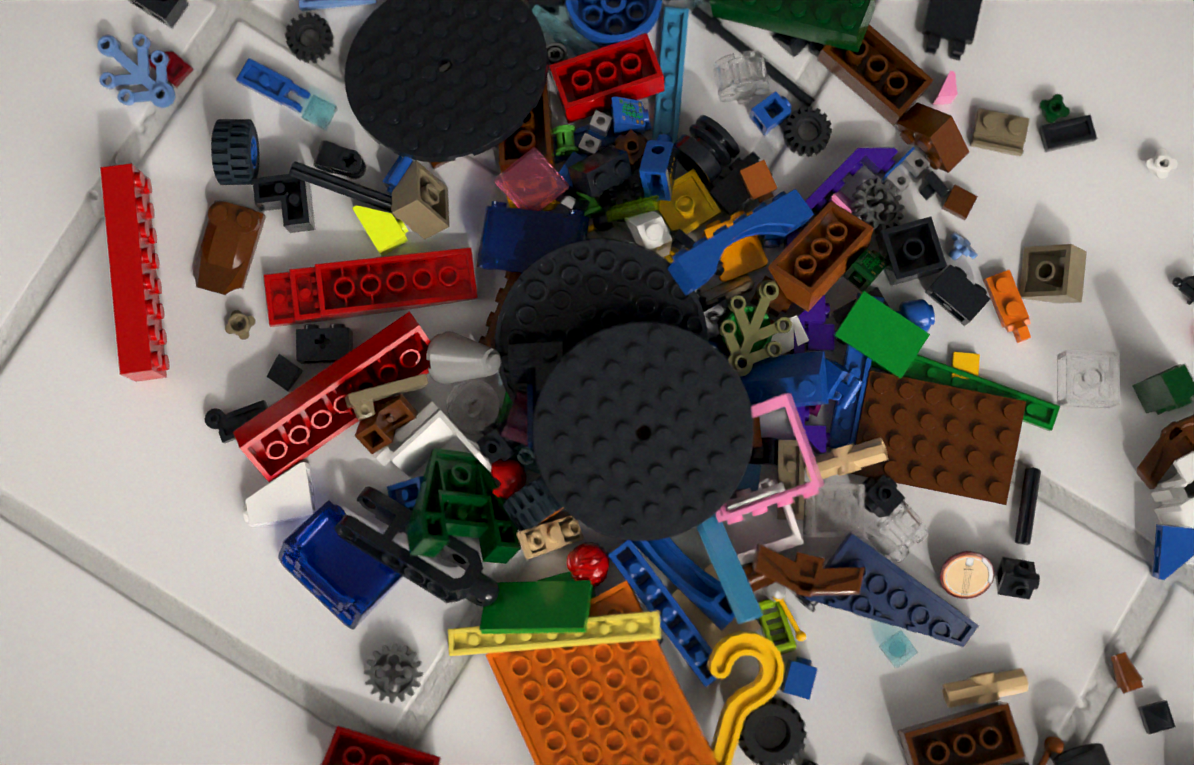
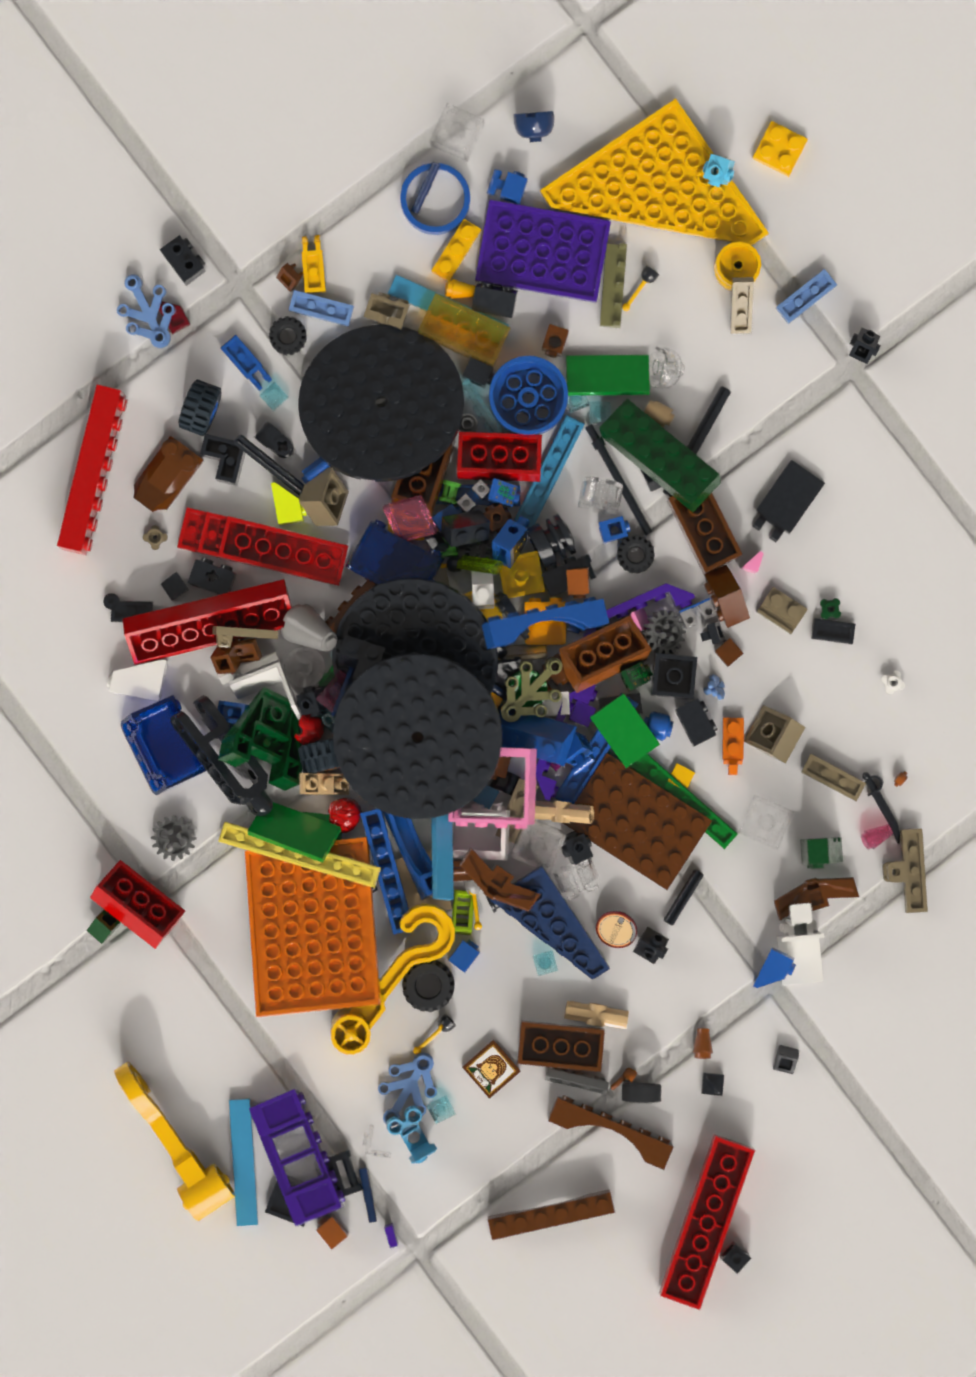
camera: 20 degrees right, 5 degrees up
(1141, 298) = (833, 777): none -> dark tan plate

